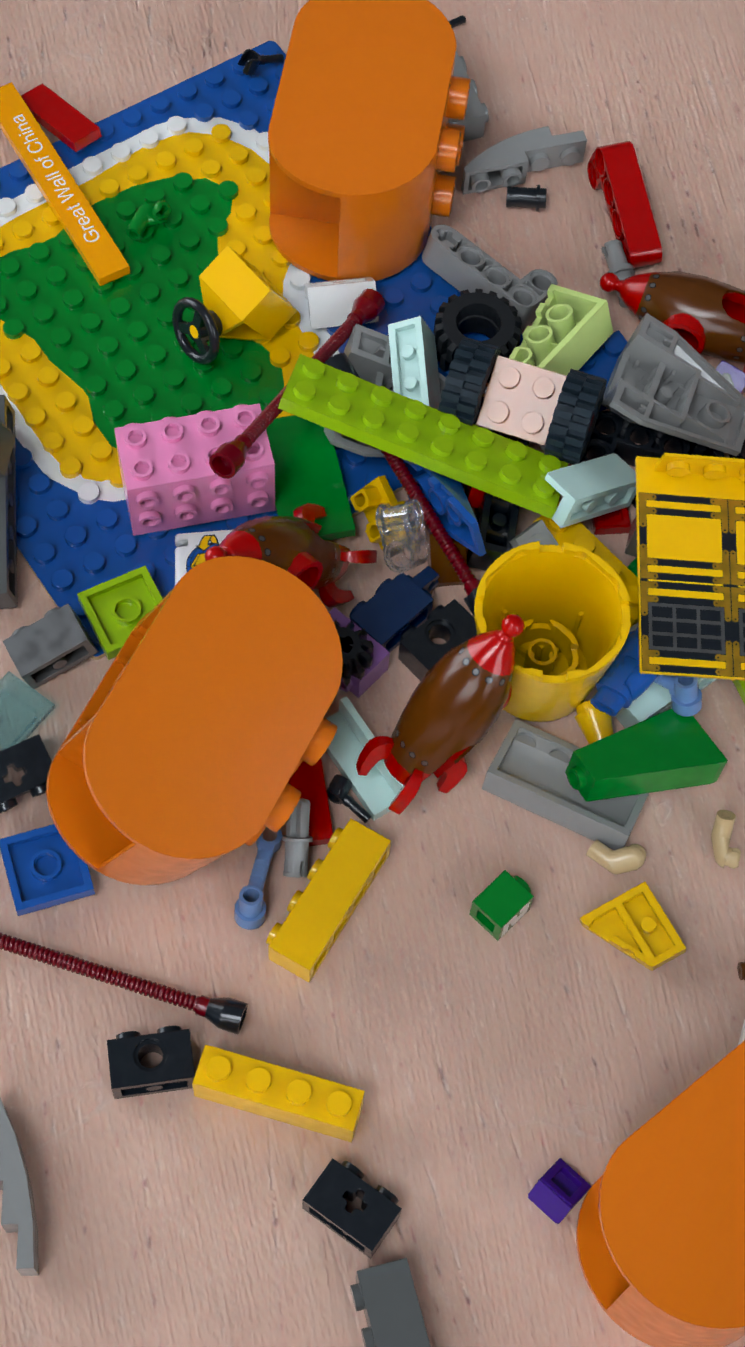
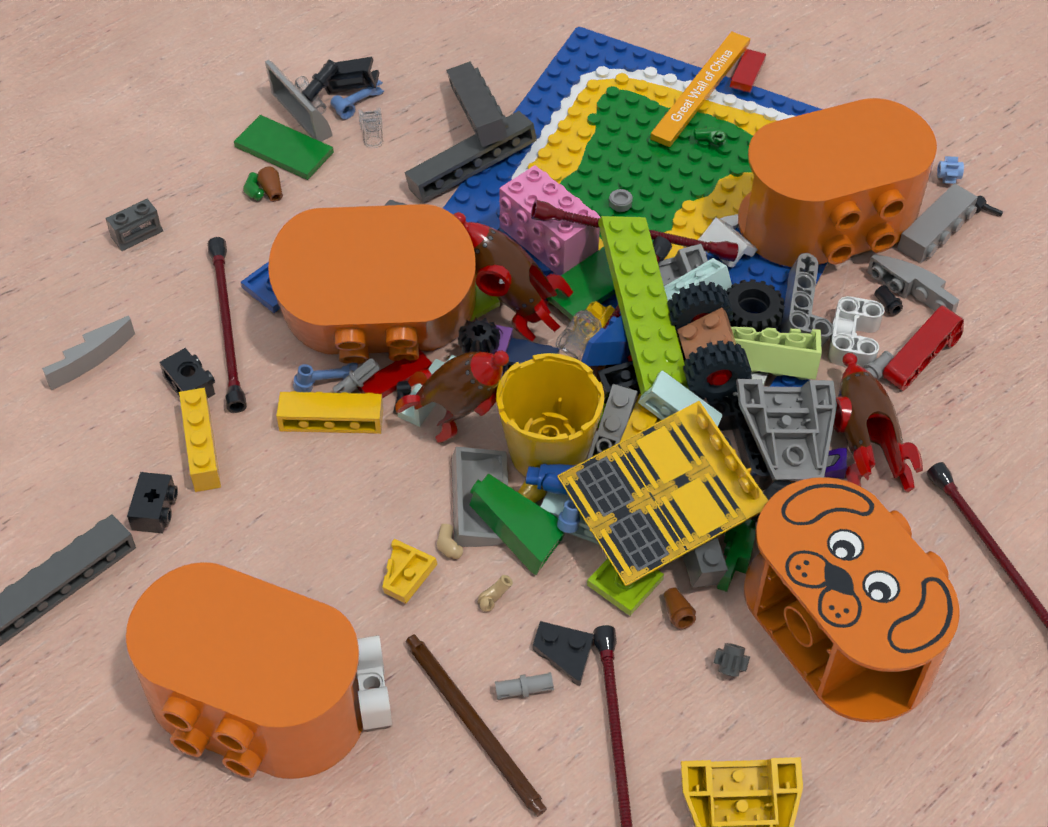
camera: 65 degrees right, 10 degrees down
(187, 375) = (620, 200): none -> light grey tile
(235, 306) = (681, 194): yellow piece -> none
(502, 904) = (377, 494): green brick -> none
(532, 248) = (851, 316): none -> white beam

